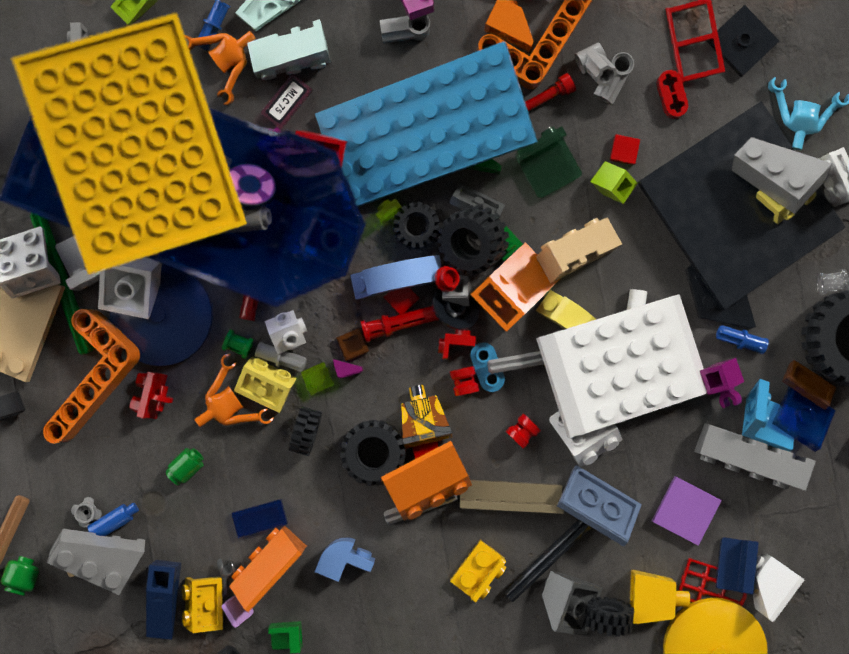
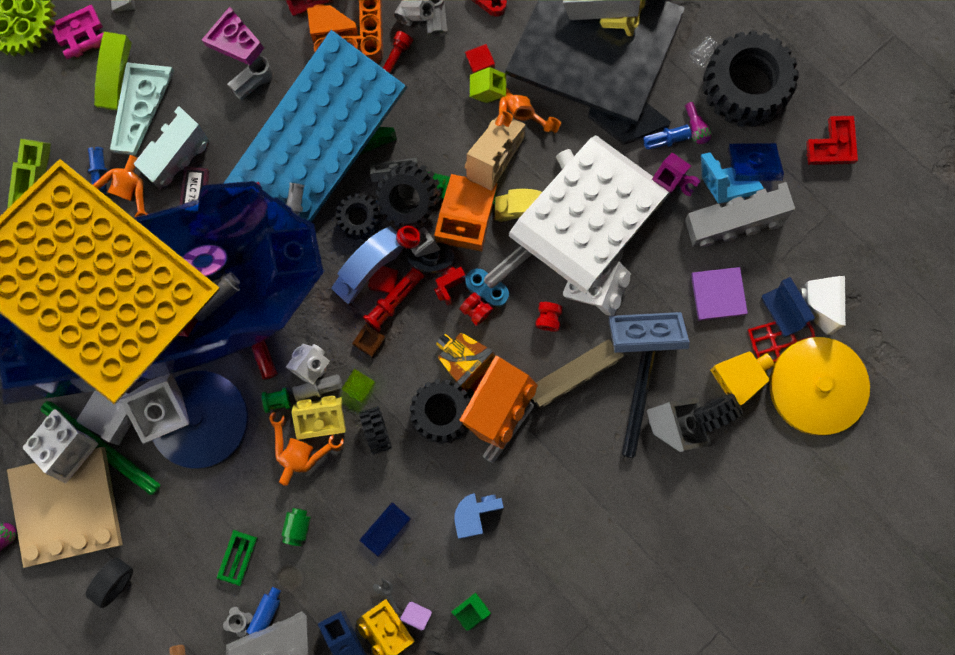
camera: 30 degrees left, 10 degrees down
(96, 378) = (175, 503): orange beam -> none
(136, 444) = (230, 579): none -> green tile
(153, 395) = (233, 487): red hips -> none
(266, 567) = (416, 562): orange slope -> none
(346, 369) = (376, 361): magenta slope -> none
(364, 181) = (295, 197): none -> light grey pin
(387, 210) = (327, 219): clear neon green plate -> none
(478, 571) = (590, 451): yellow bracket -> none
(548, 163) = (427, 104): clear green bracket -> none
(628, 227) = (521, 109): none -> orange piece
(776, 351) = (699, 129): none -> magenta piece
(809, 384) = (742, 137): reddish brown tile -> none

